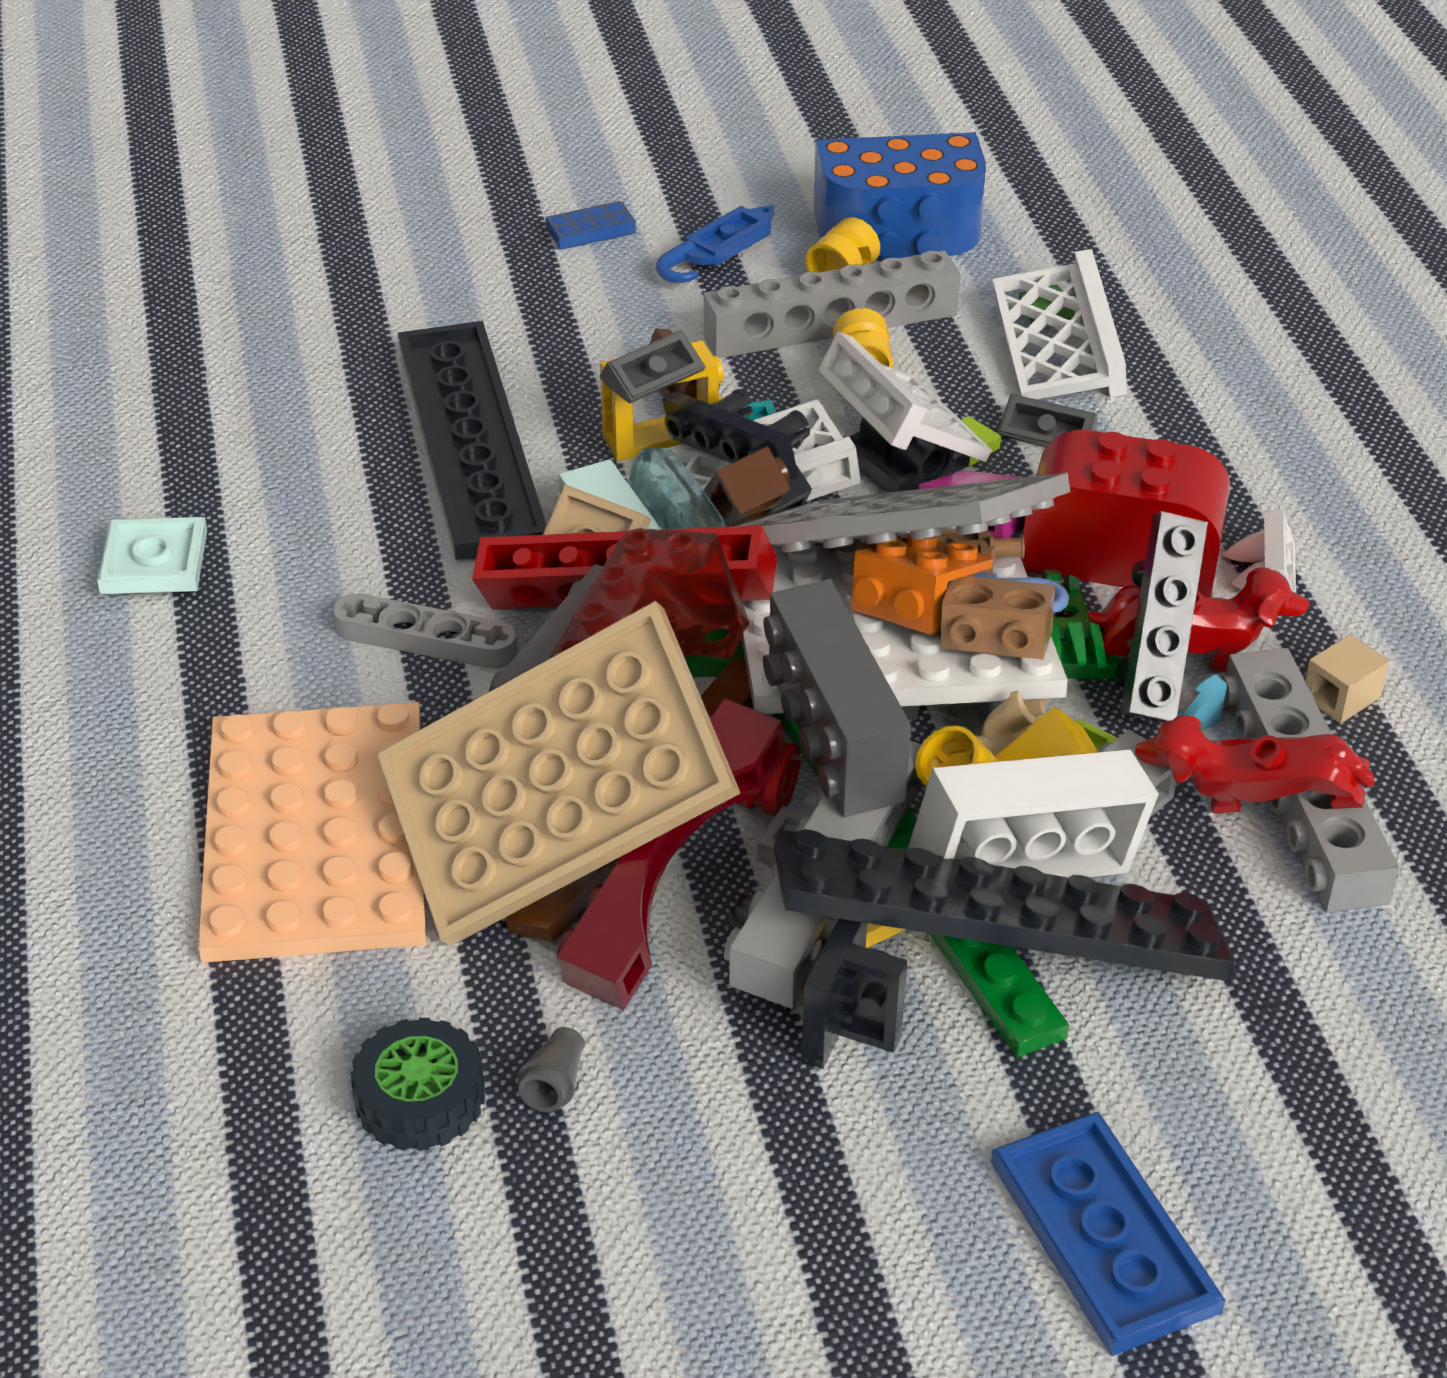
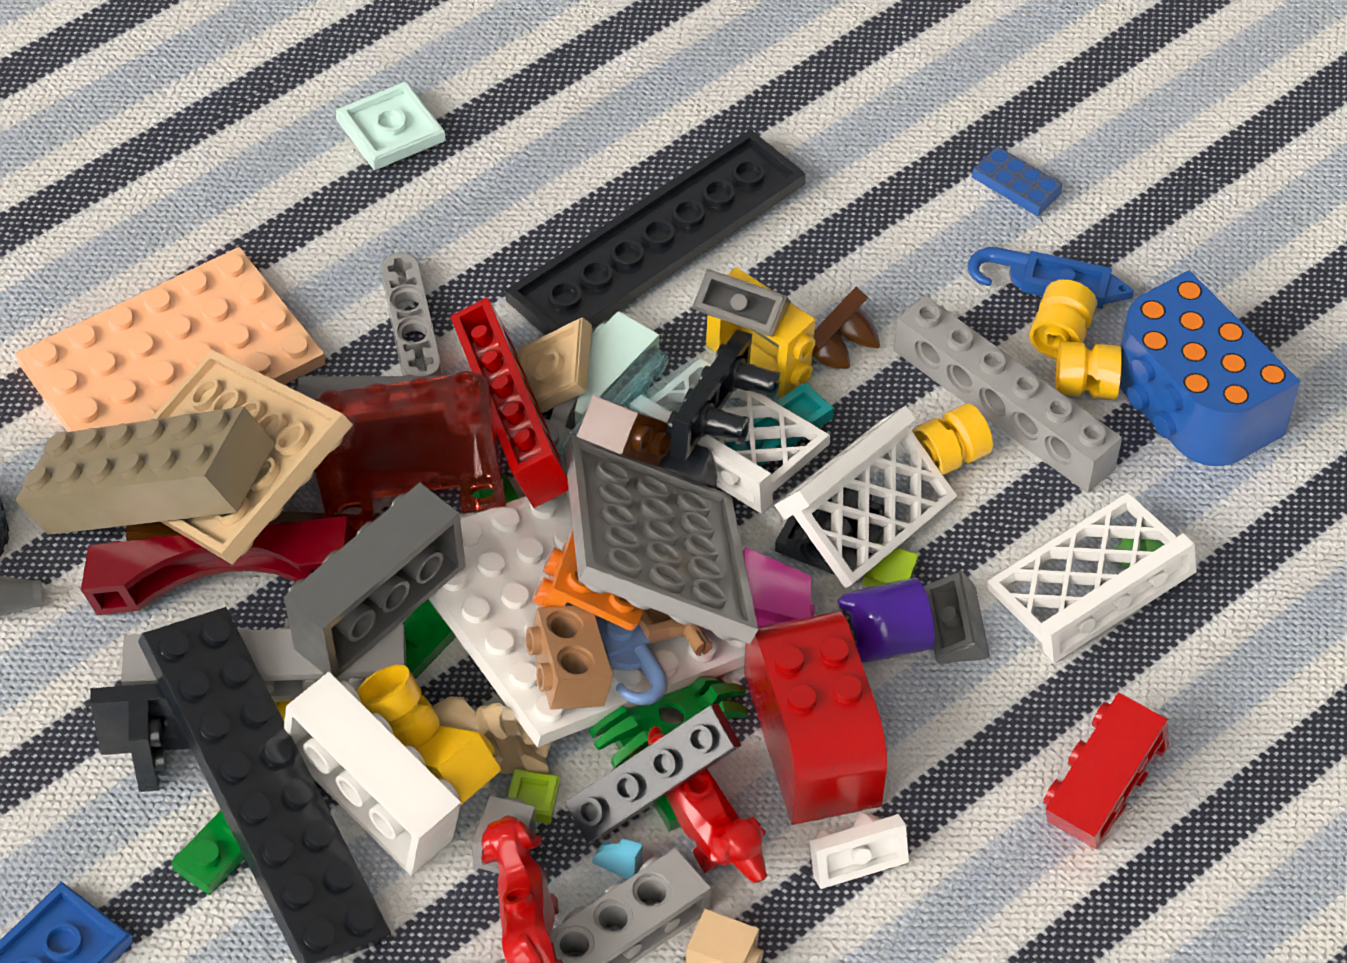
camera: 60 degrees right, 10 degrees up
(531, 842) = (146, 471): none -> dark tan brick
(774, 245) = (1062, 316): none -> yellow wheel
(1033, 428) = (890, 619): none -> dark purple piece
(1277, 388) = (1106, 769): none -> red wedge

